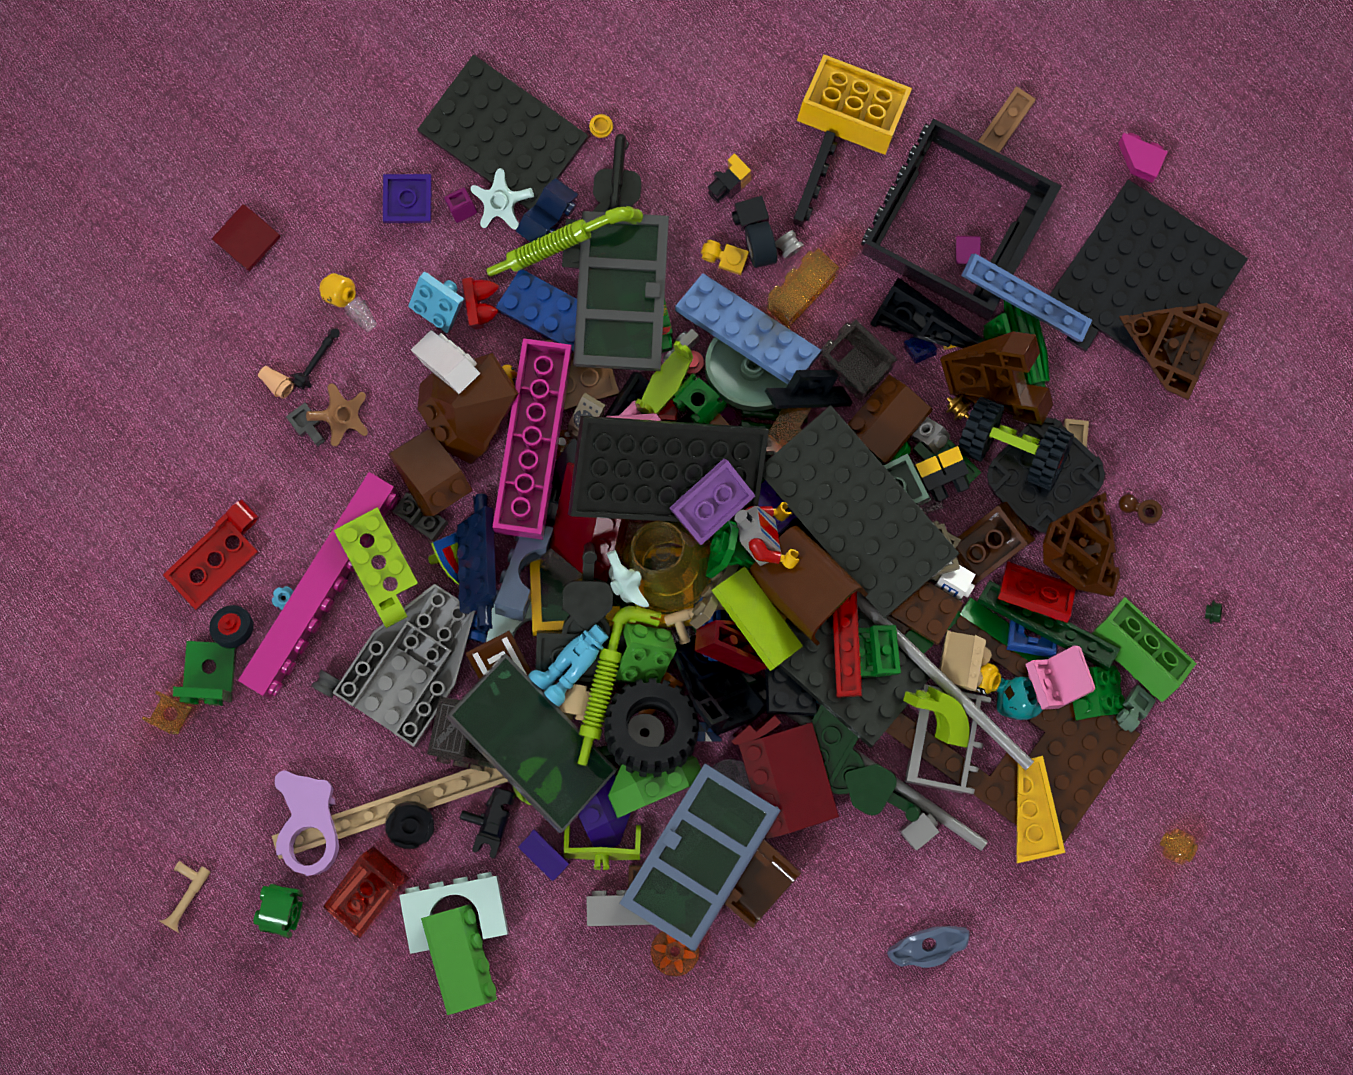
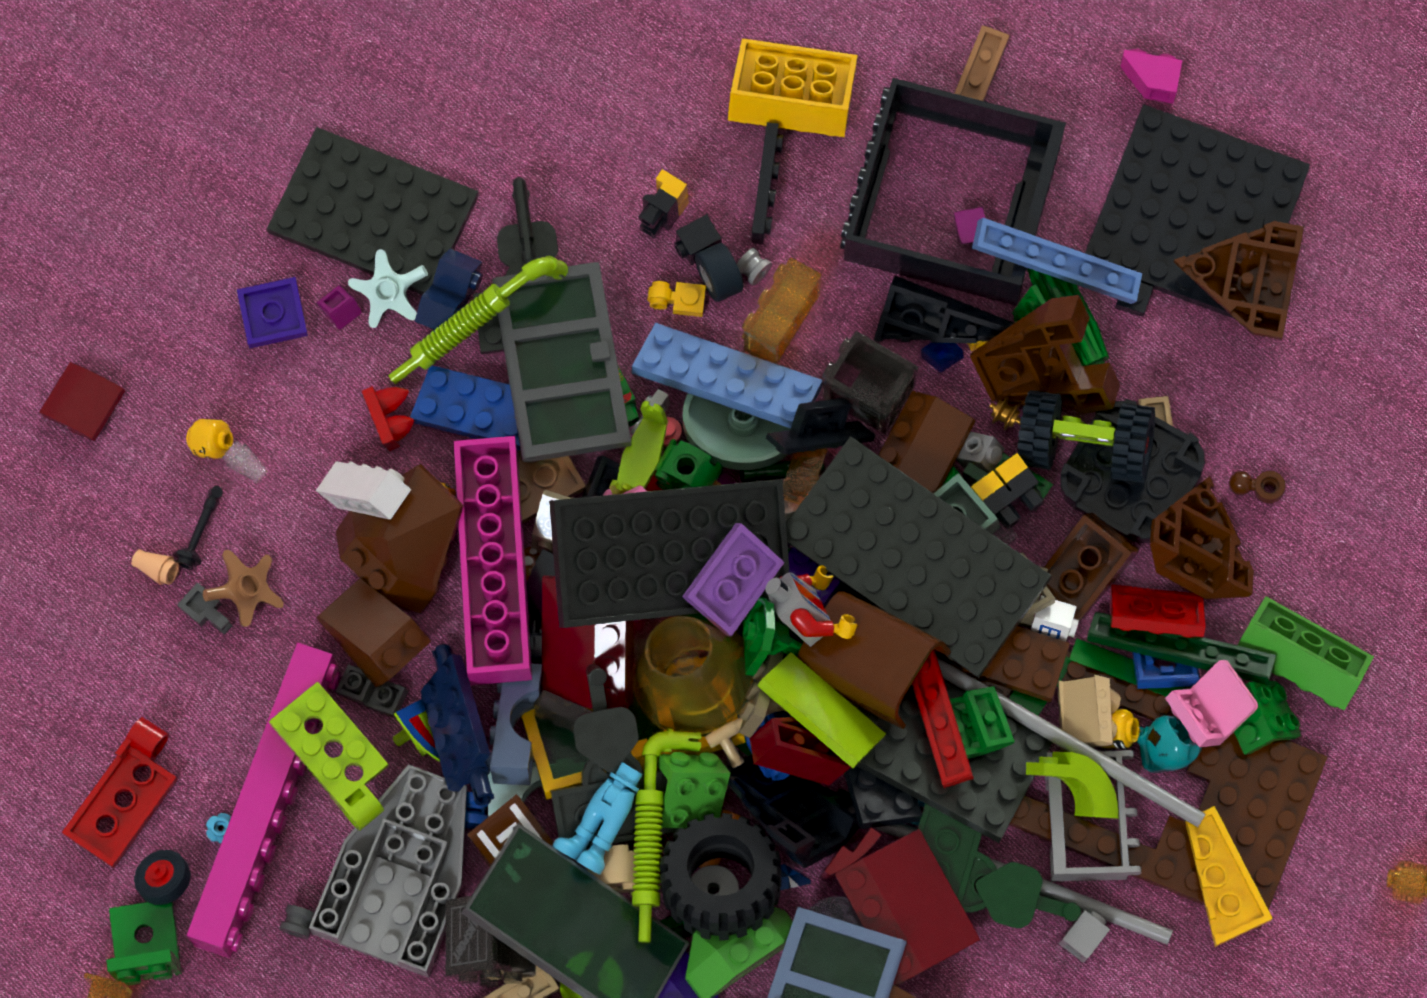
camera: 15 degrees left, 10 degrees down
(436, 301) = (335, 425): medium azure plate -> none
(601, 126) = (491, 177): yellow plate -> none
(625, 581) = (648, 701): light aqua animal -> none
(1138, 705) = (1315, 724): sand green plate -> none
(1214, 612) = (1379, 589): dark green plate -> none

